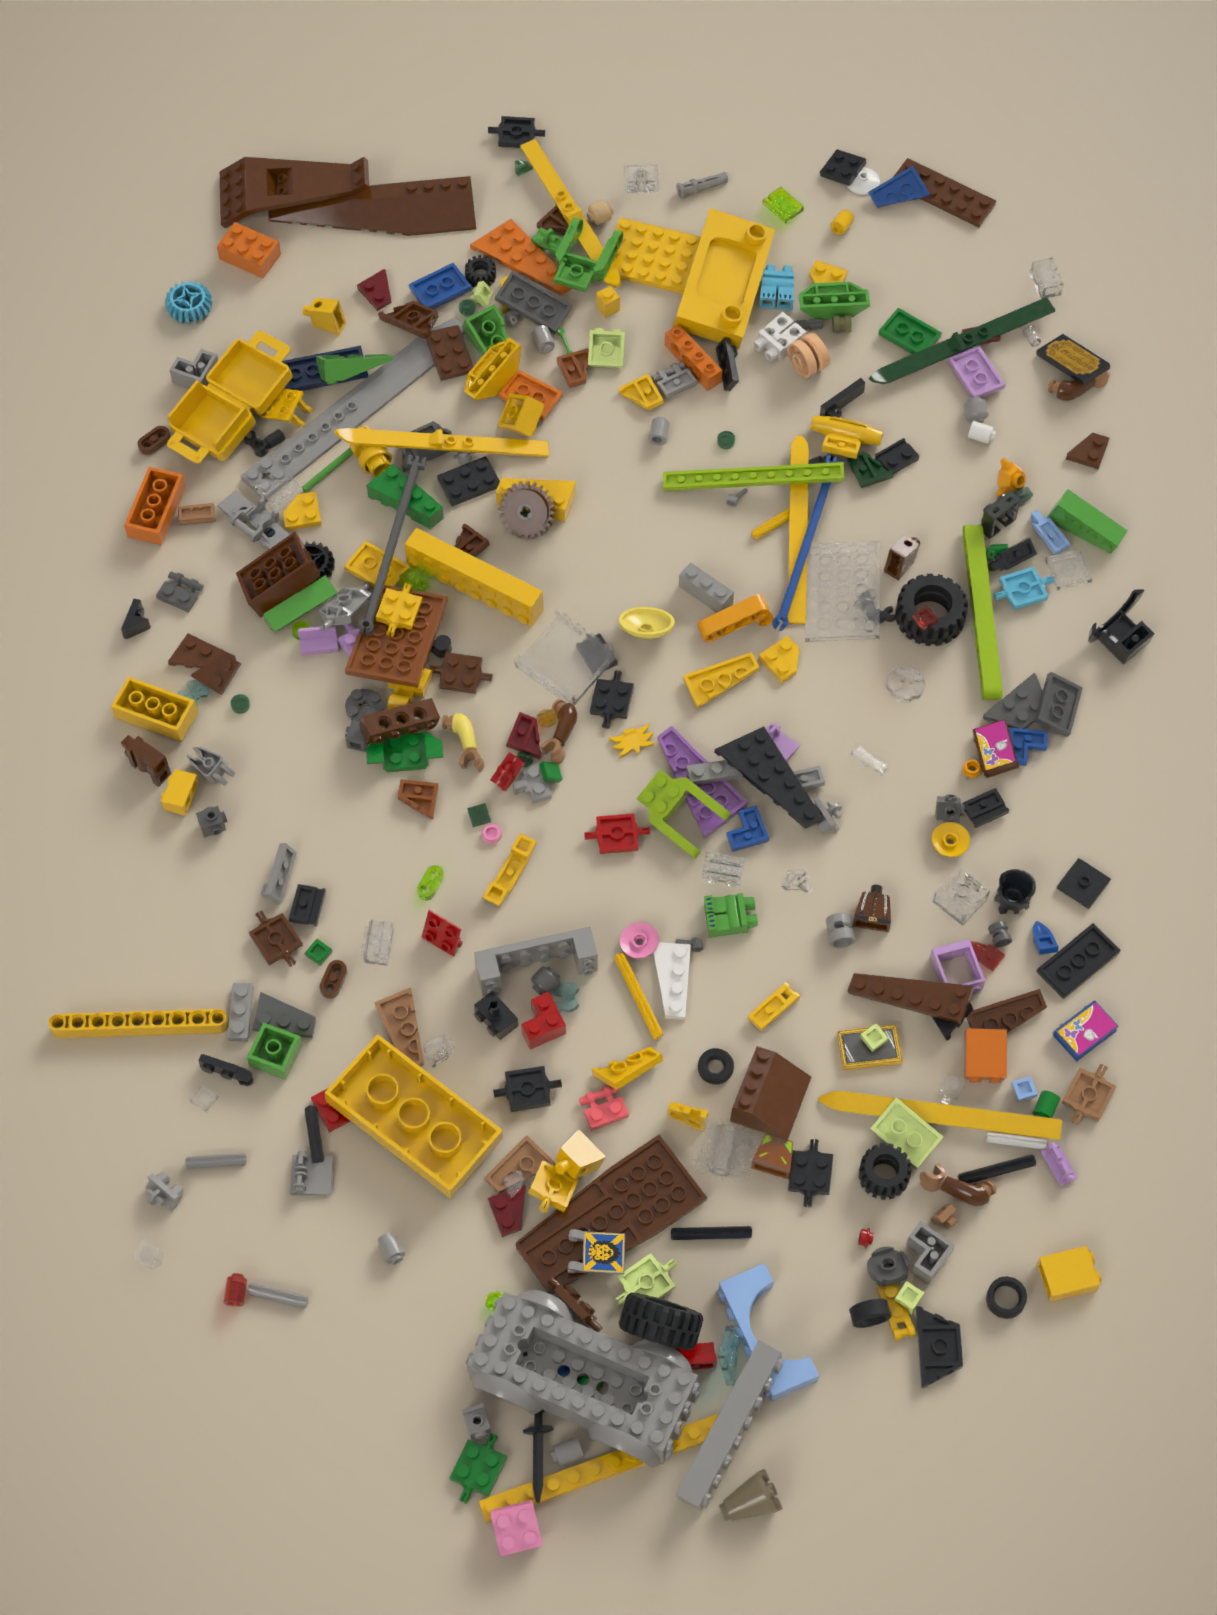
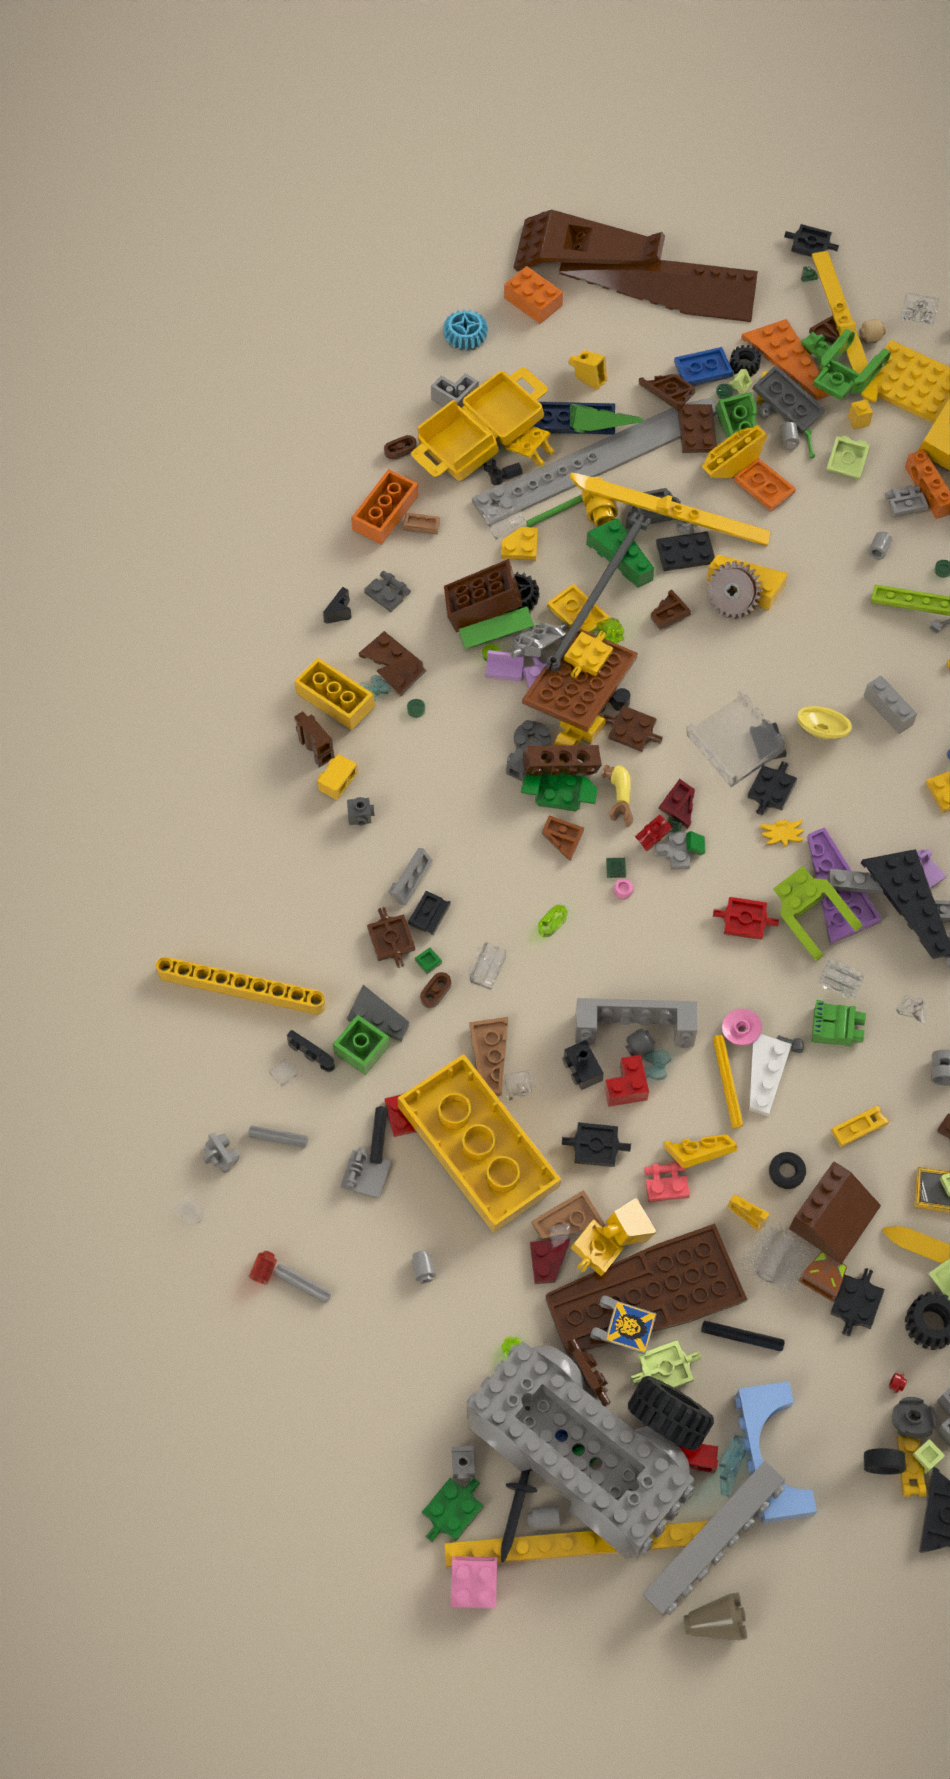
camera: 15 degrees right, 0 degrees up
(210, 765) = (373, 759): light grey hinge -> none
(240, 1012) = (339, 999): light grey plate -> none
(264, 522) = (483, 546): light grey piece -> none
(376, 290) = (642, 357): dark red wing -> none
(442, 933) = (551, 972): red hinge -> none
(474, 577) = (668, 641): yellow brick -> none
(511, 870) = (633, 929): yellow slope -> none
(521, 415) = (751, 500): yellow slope -> none
(547, 717) = (704, 790): clear yellow plate -> none
(567, 718) = (724, 796): piece -> none
(574, 367) = (813, 468): dark orange wing -> none
(642, 392) = (873, 506): yellow wing -> none
(716, 679) = (879, 793): yellow wing -> none
(735, 617) = (912, 738): light orange beam -> none
(751, 834) = (880, 948): blue plate -> none

